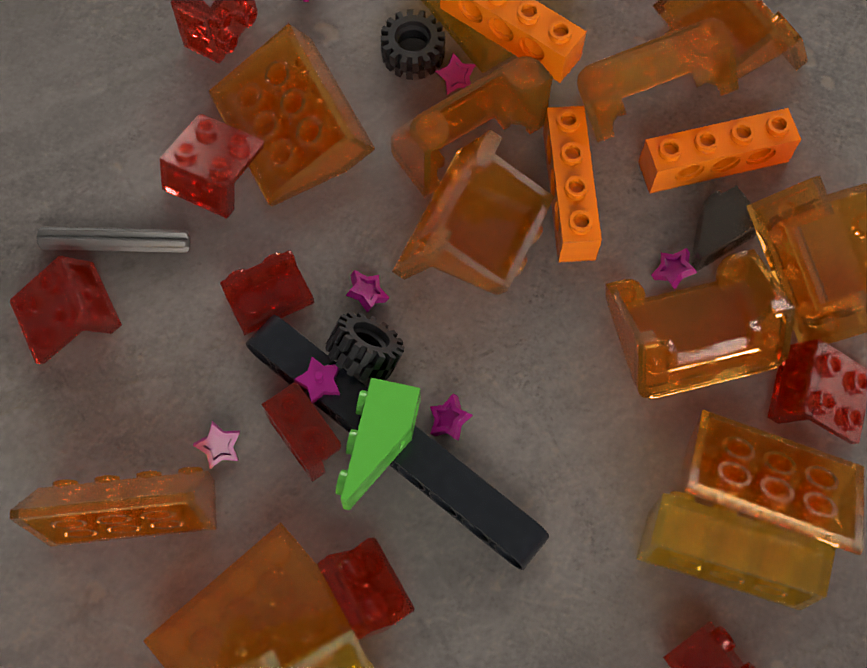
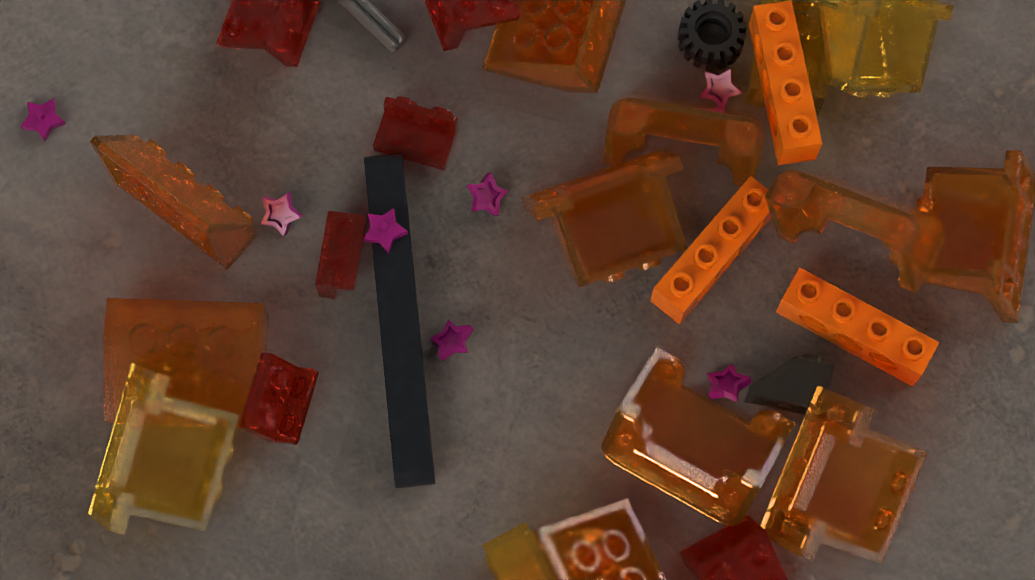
camera: 45 degrees right, 5 degrees up
(364, 347) = (425, 240): black tyre -> none
(383, 432) = (386, 305): bright green slope -> none

